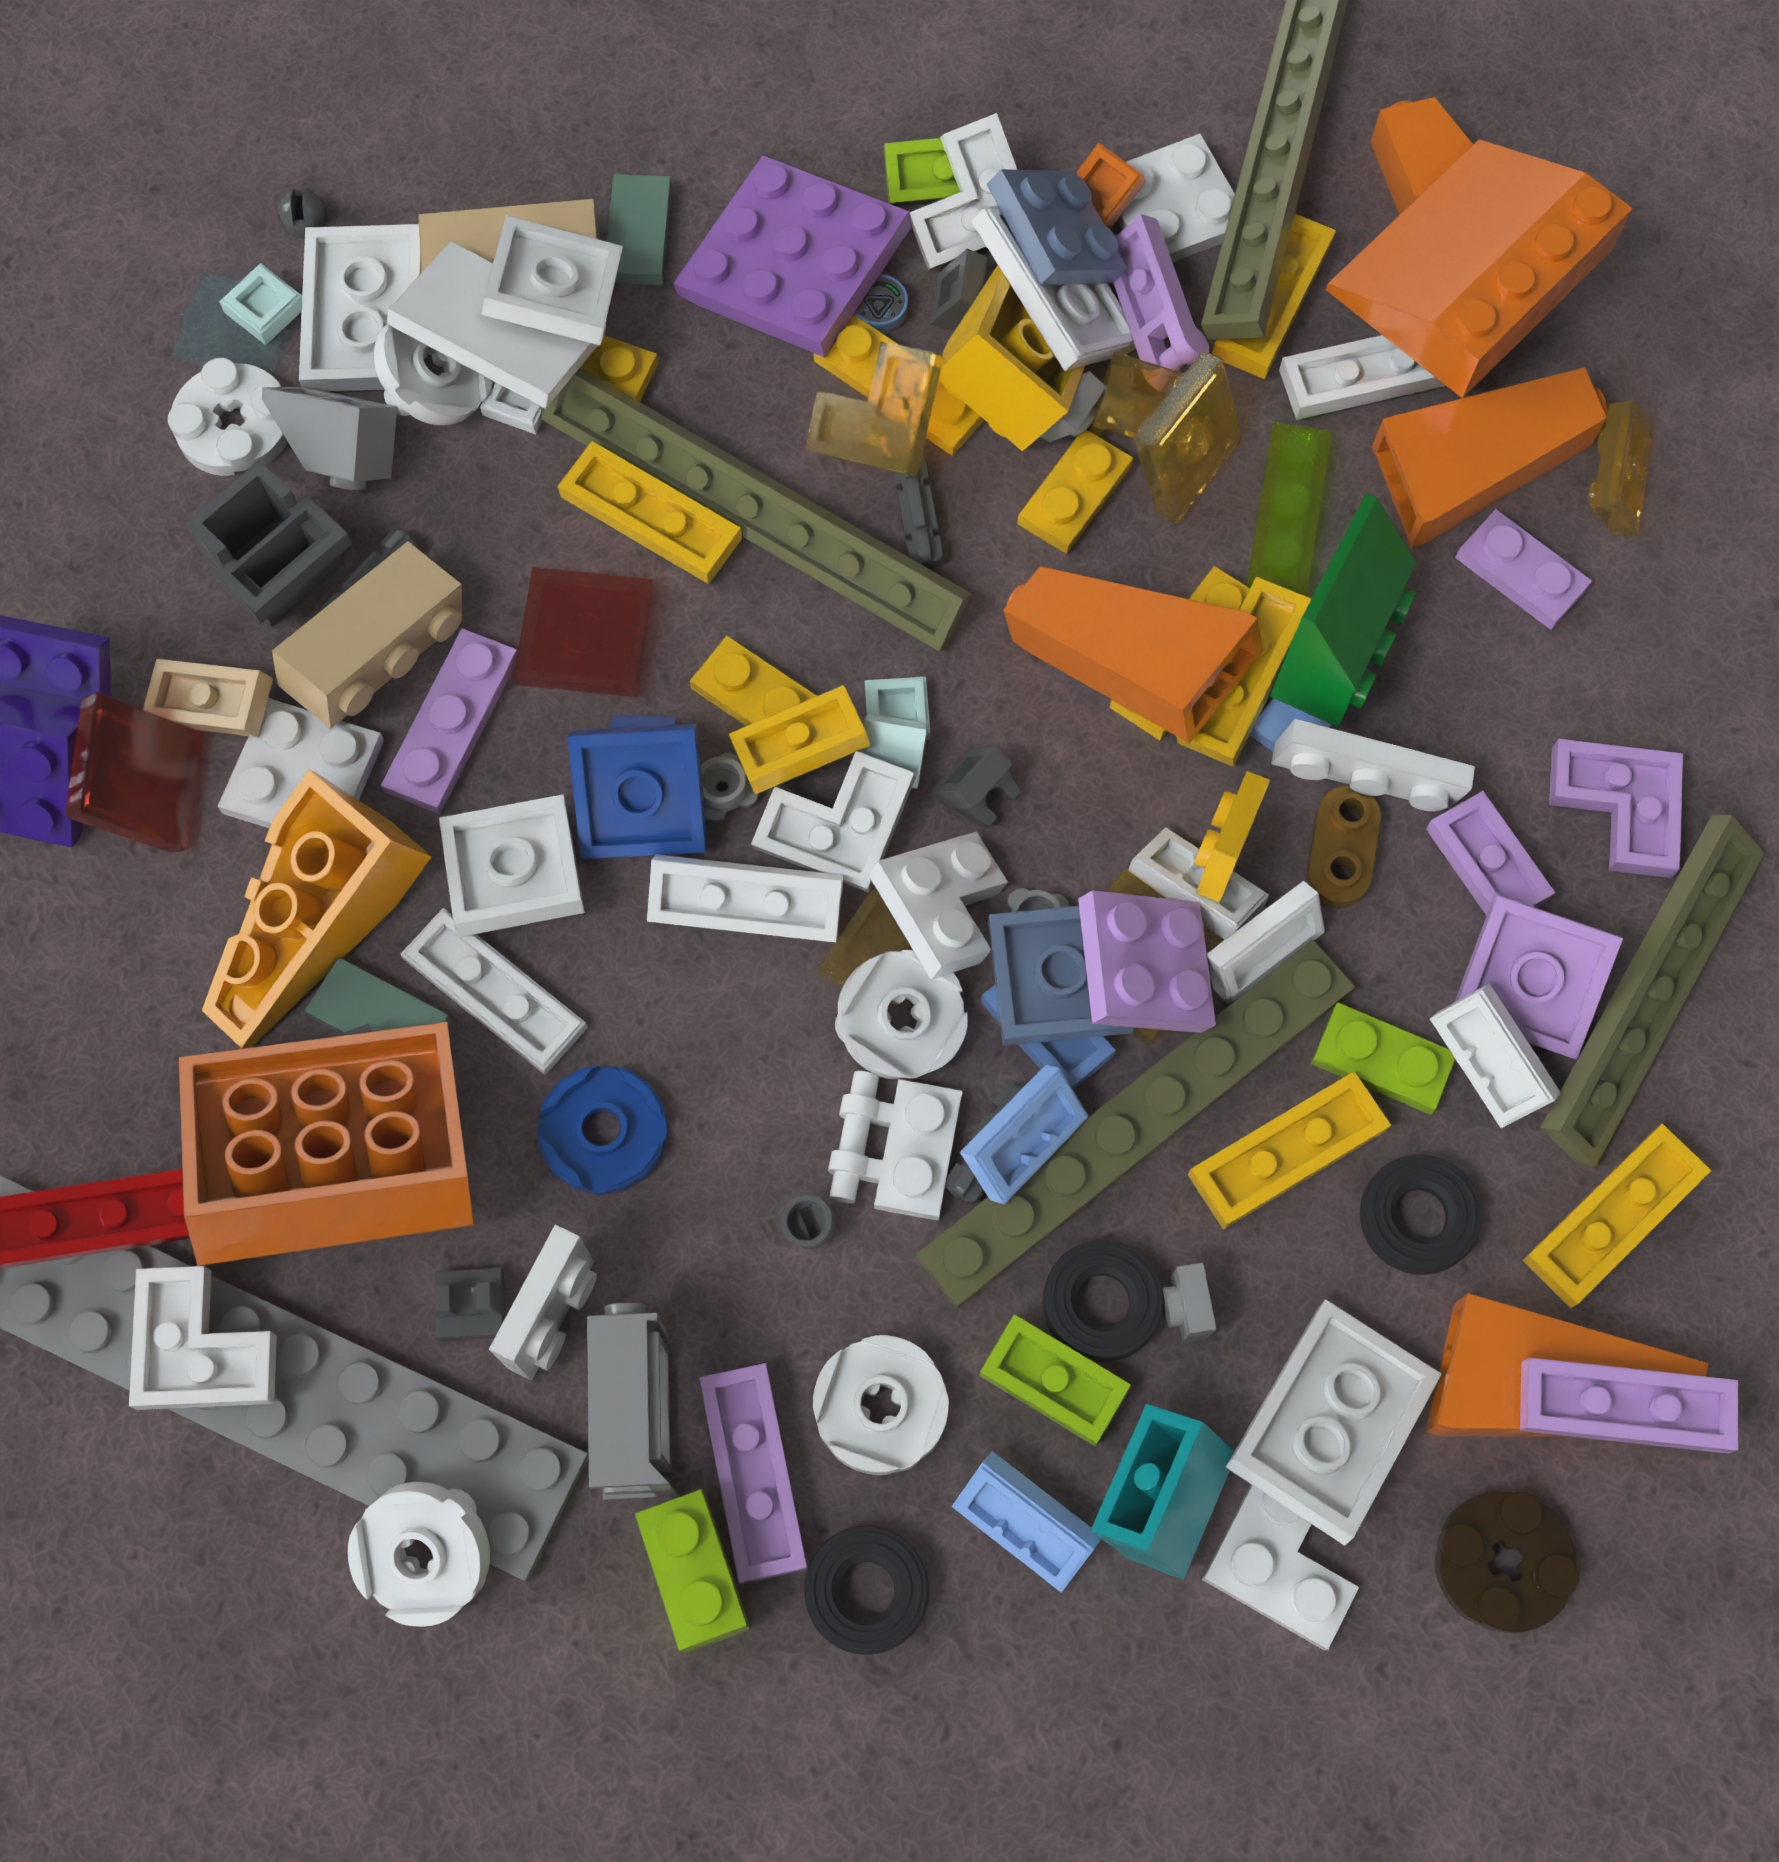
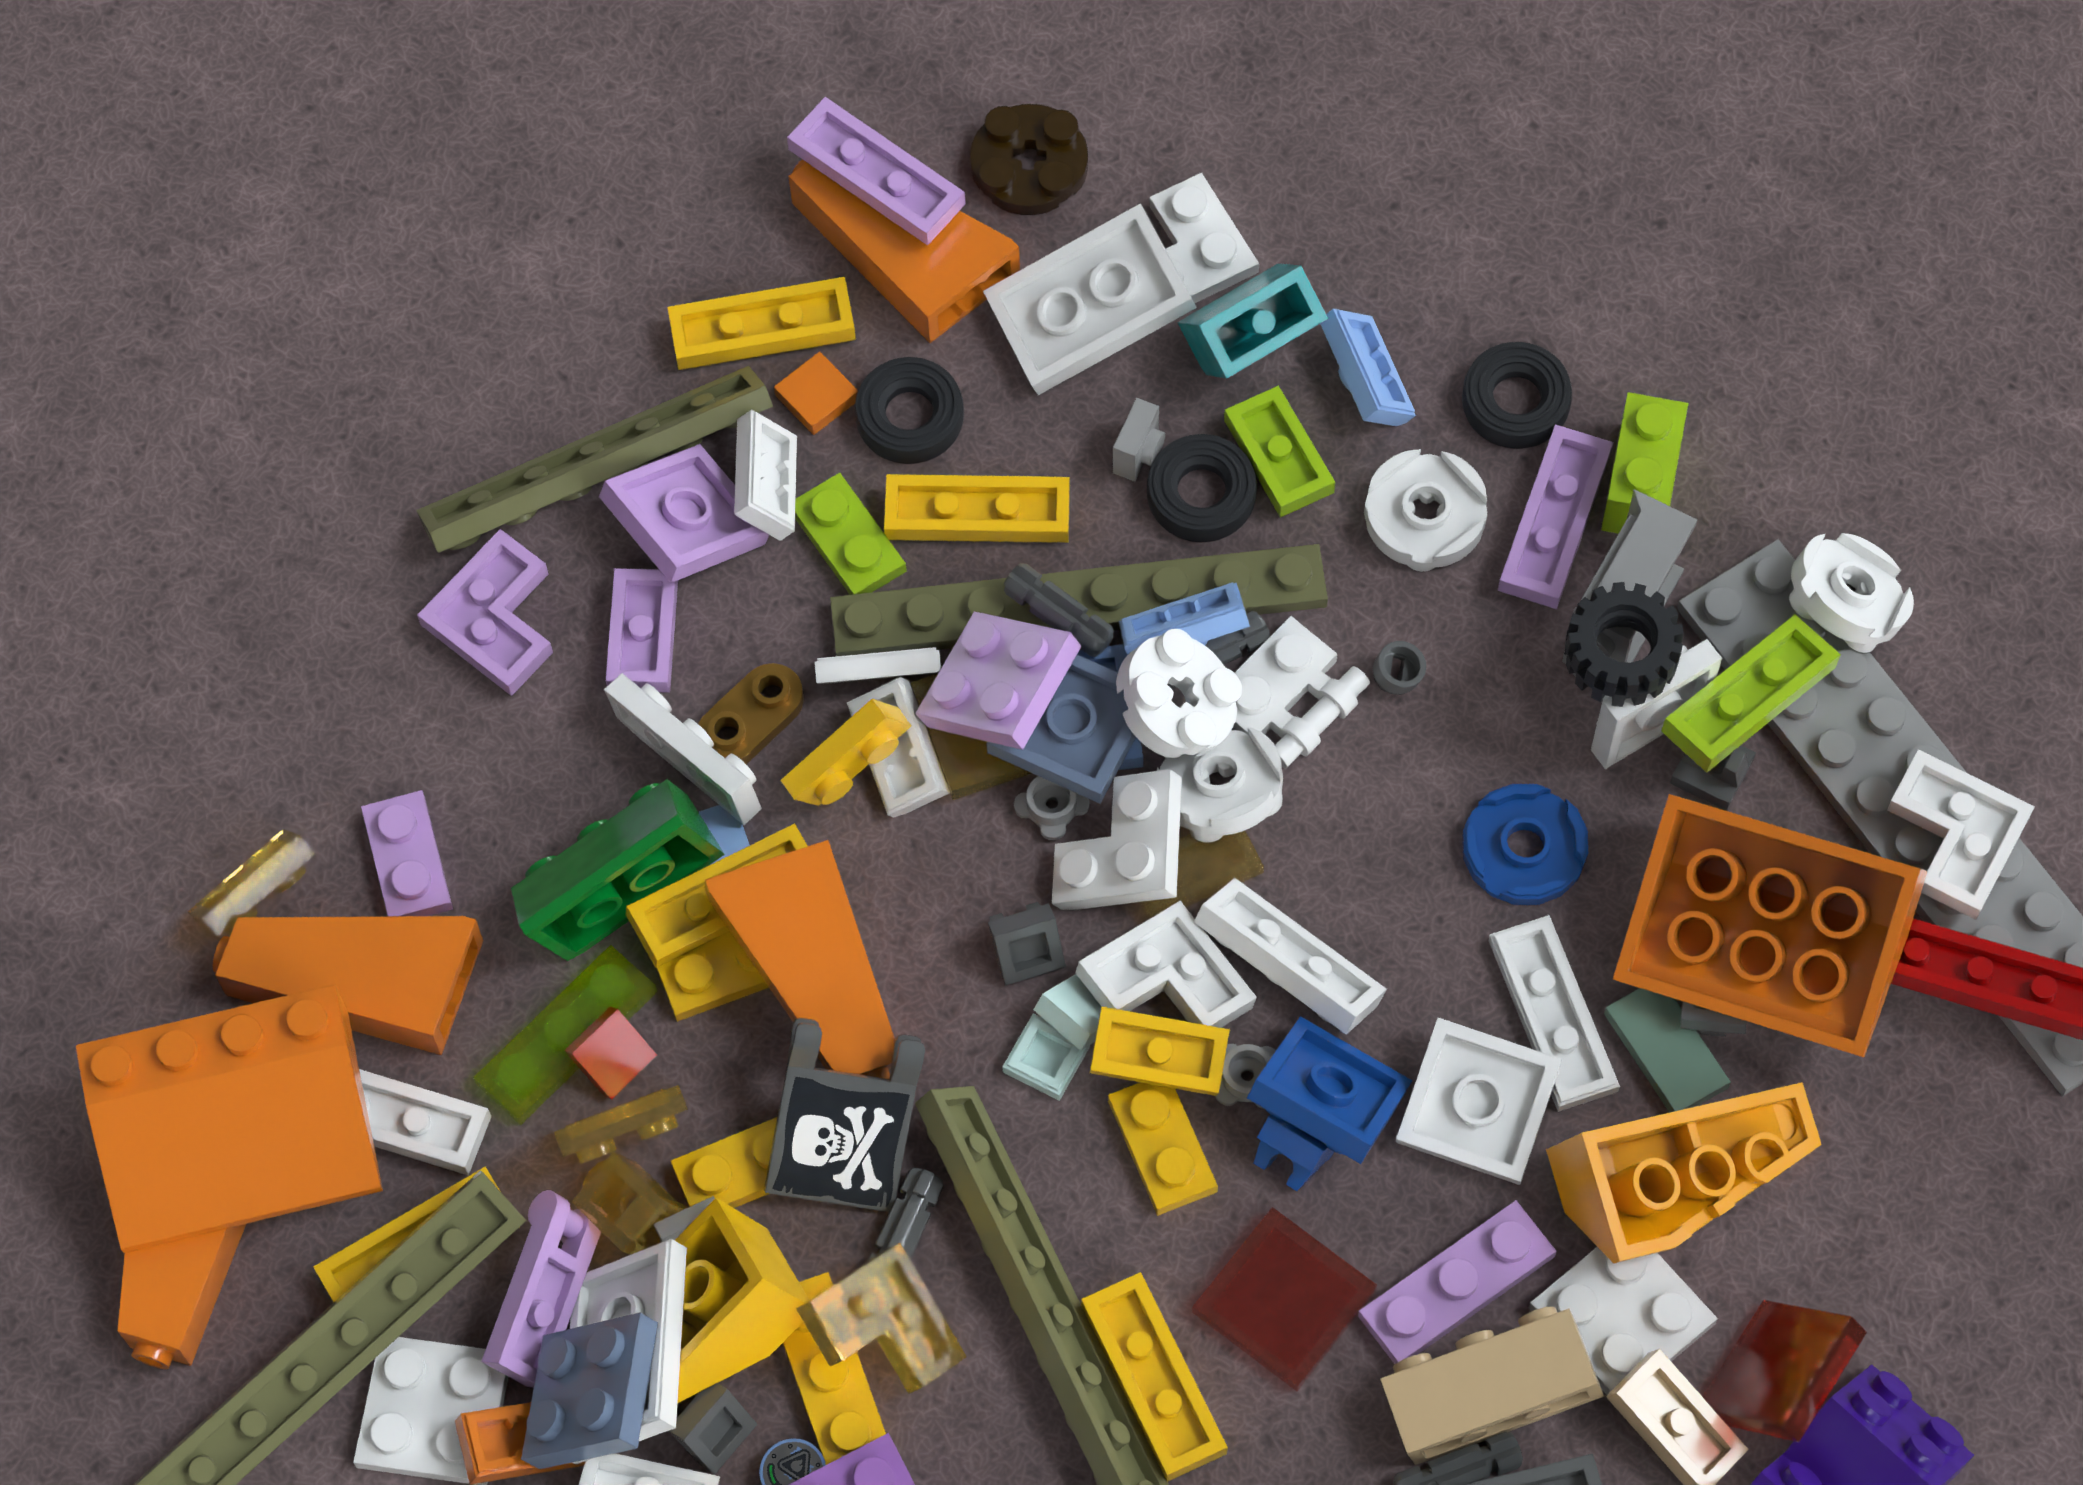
camera: 145 degrees left, 5 degrees down
(455, 1366) = (1750, 693): none -> lime plate
(552, 1258) = (1629, 610): none -> black tyre
(943, 1047) = (1202, 679): none -> white plate
(1012, 536) = (842, 1131): none -> flag
(1144, 1076) = (1058, 609): none -> dark grey axle
(1241, 506) = (610, 1052): none -> tile
(1516, 1181) = (816, 393): none -> orange tile

